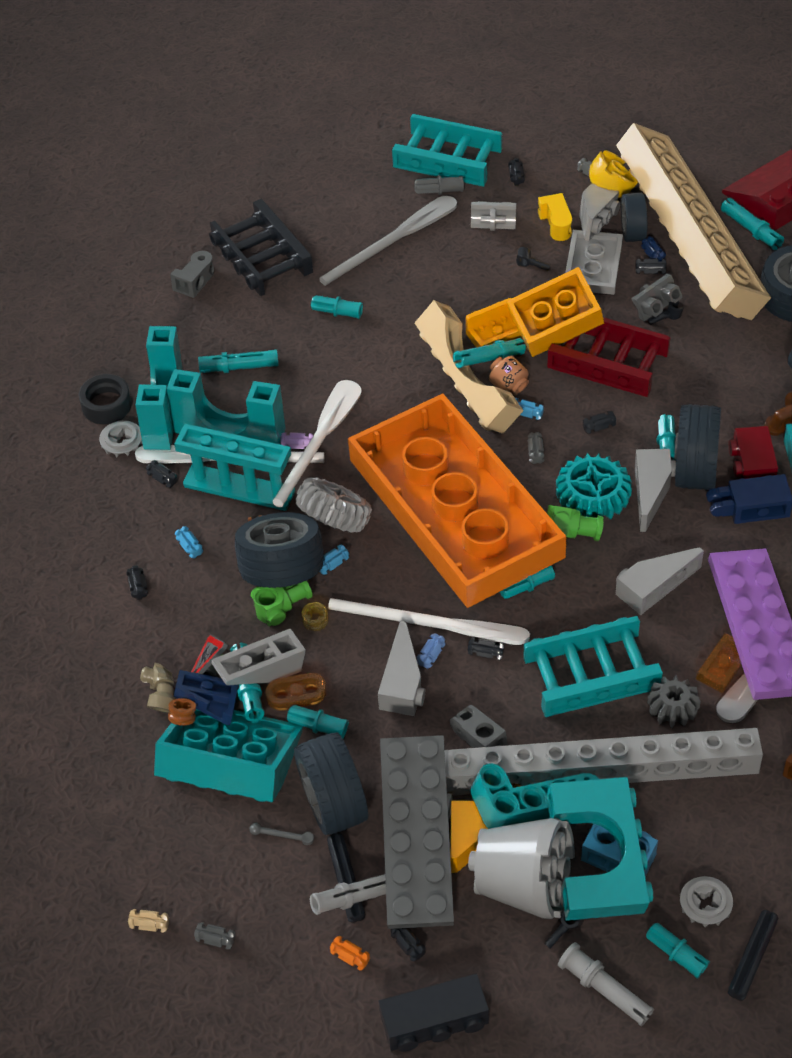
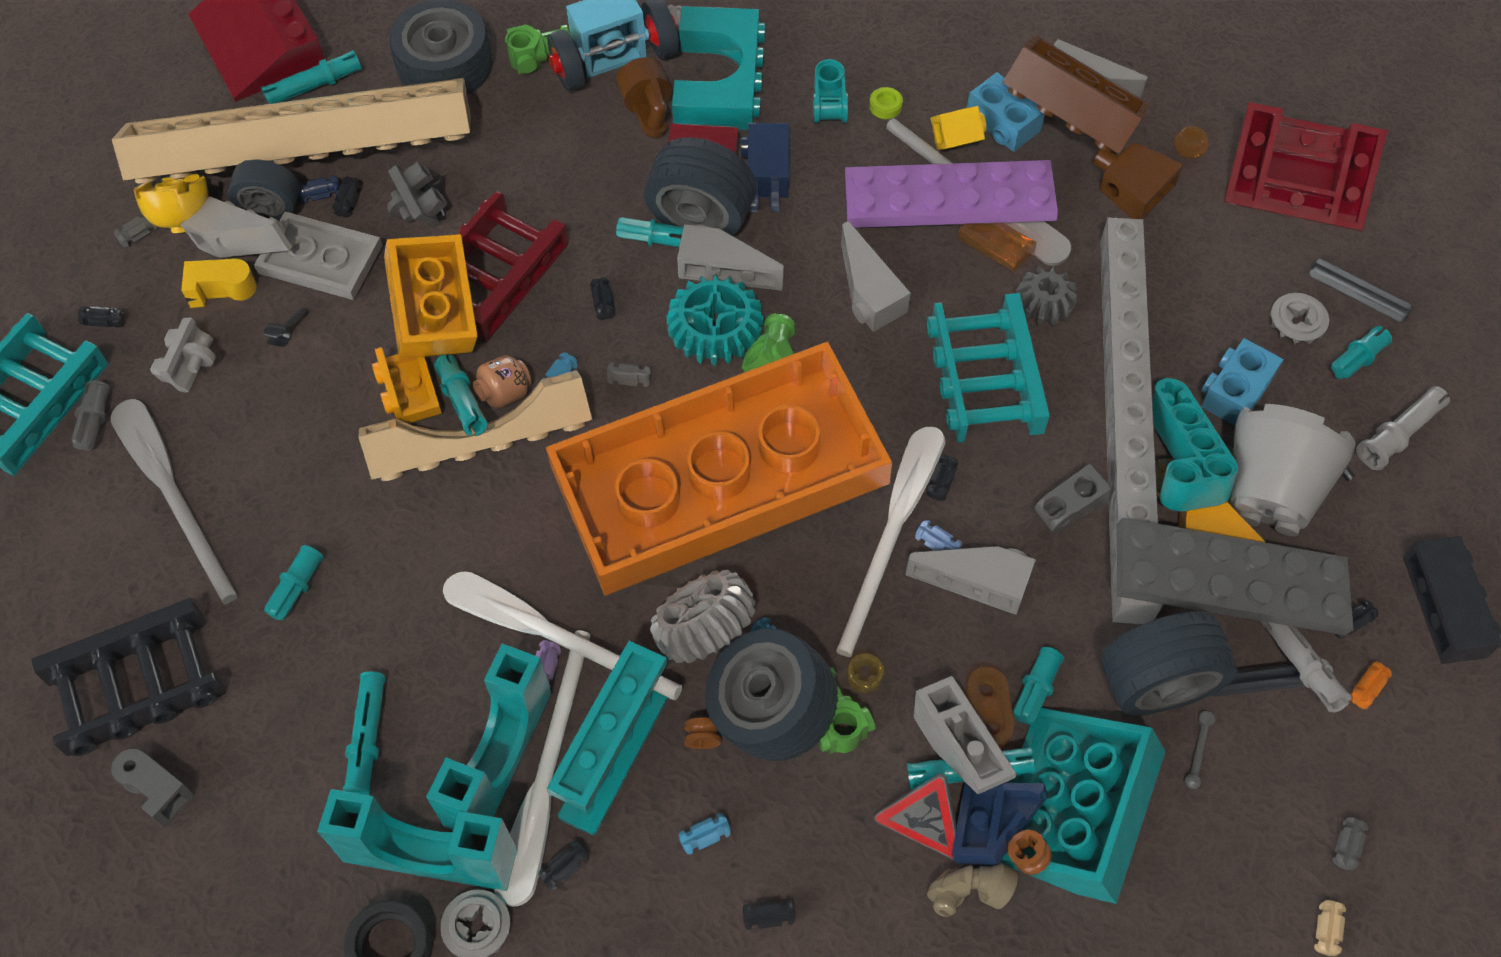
camera: 85 degrees left, 10 degrees up
(610, 806) = (1314, 373): teal arch -> none

